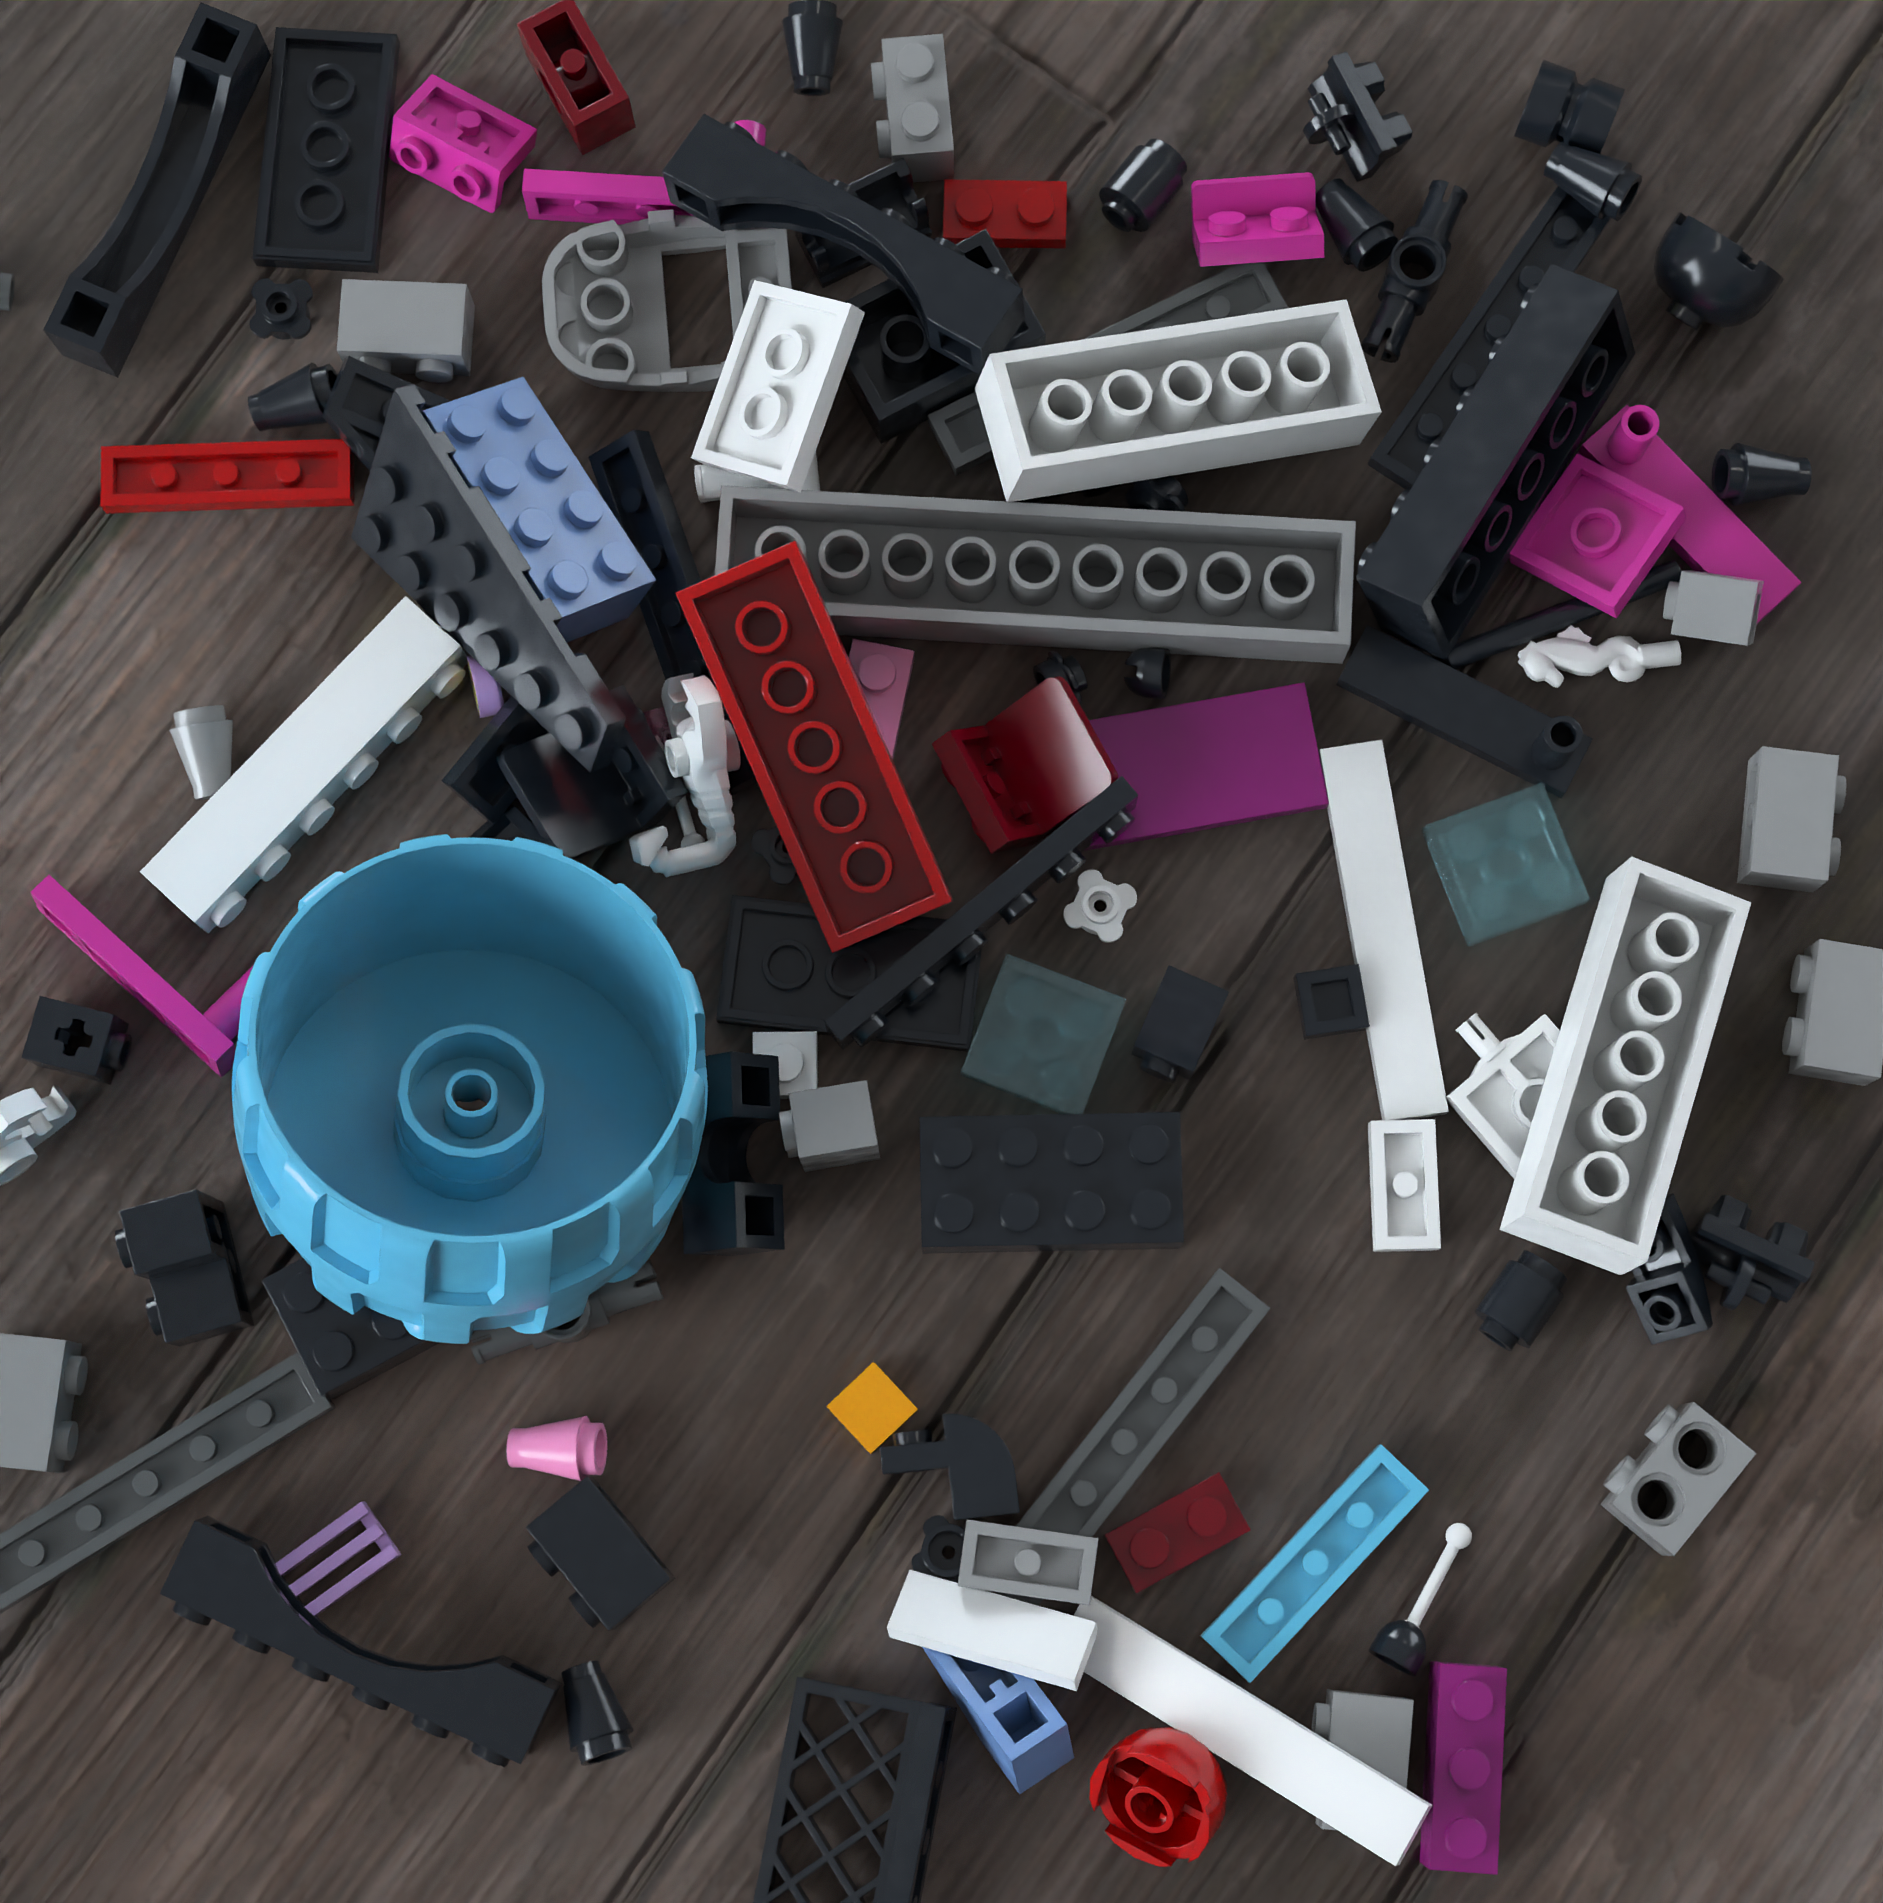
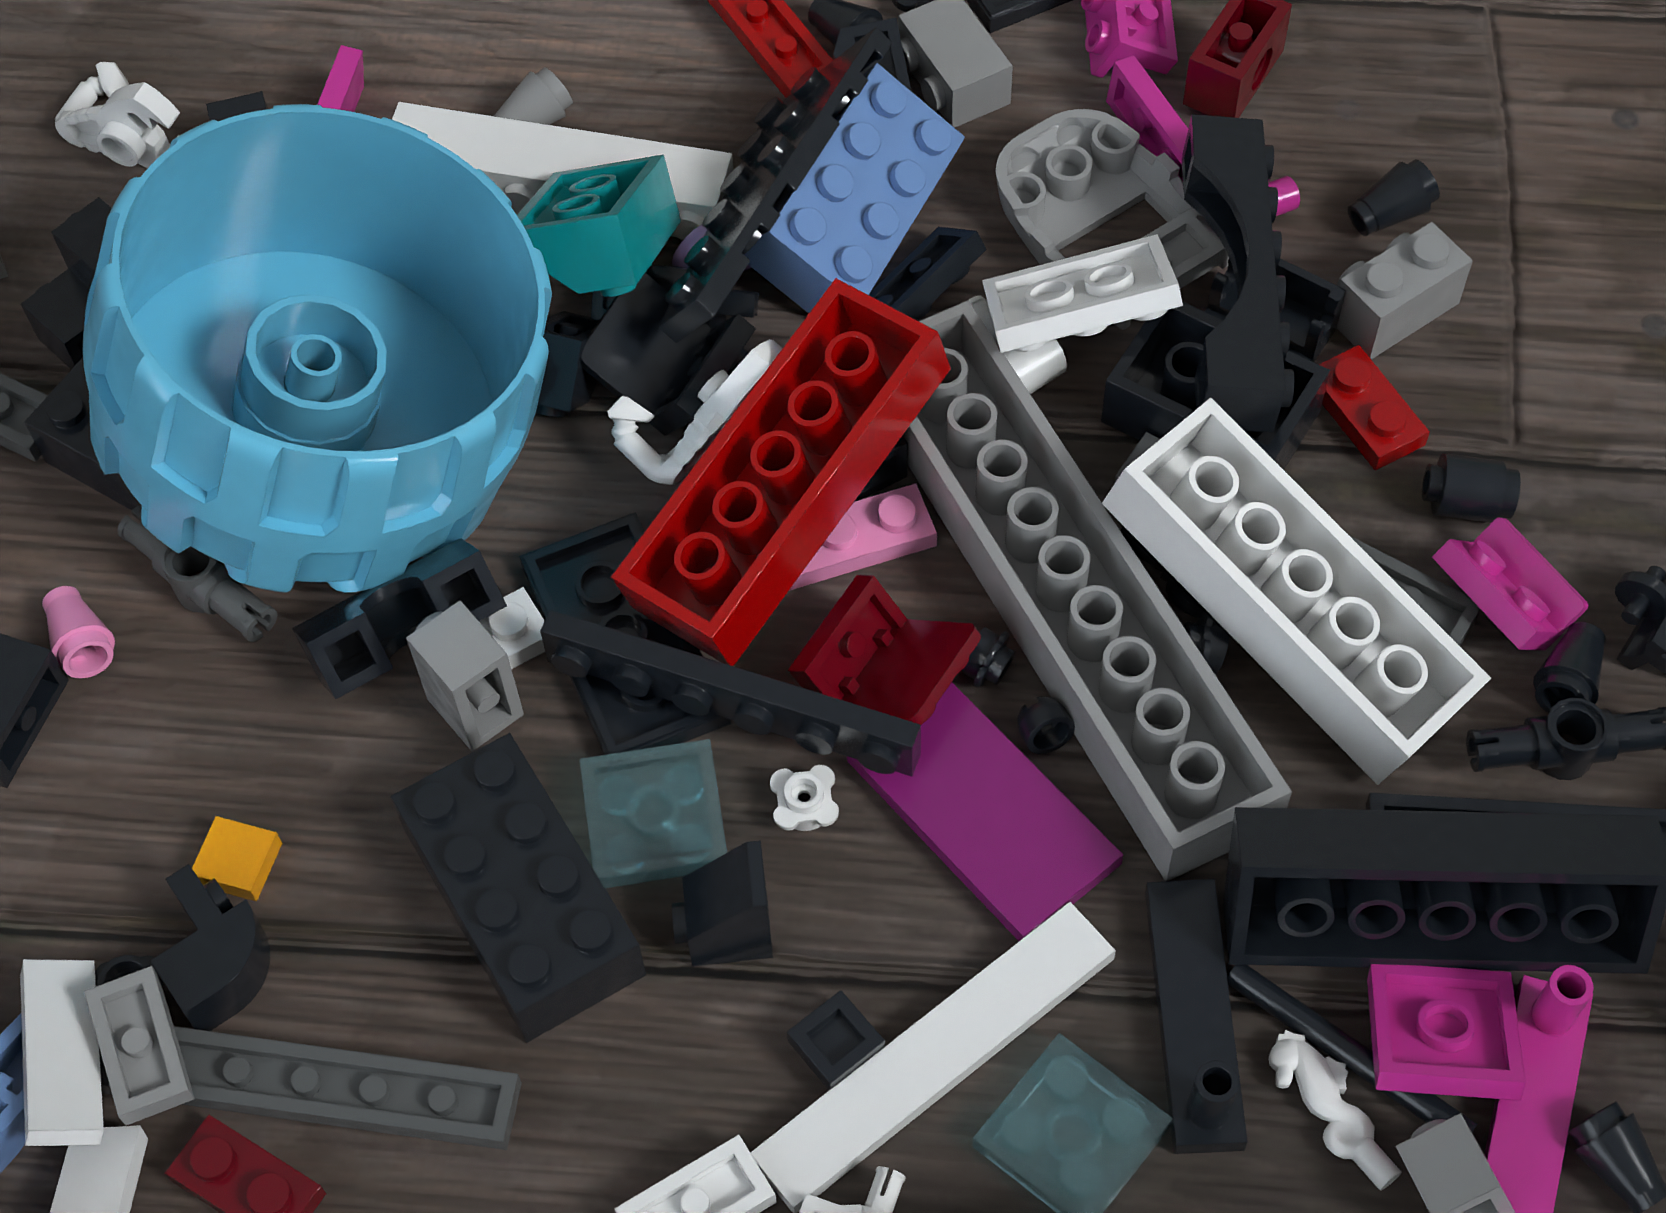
camera: 60 degrees right, 20 degrees down
(439, 762) = (603, 223): none -> teal slope

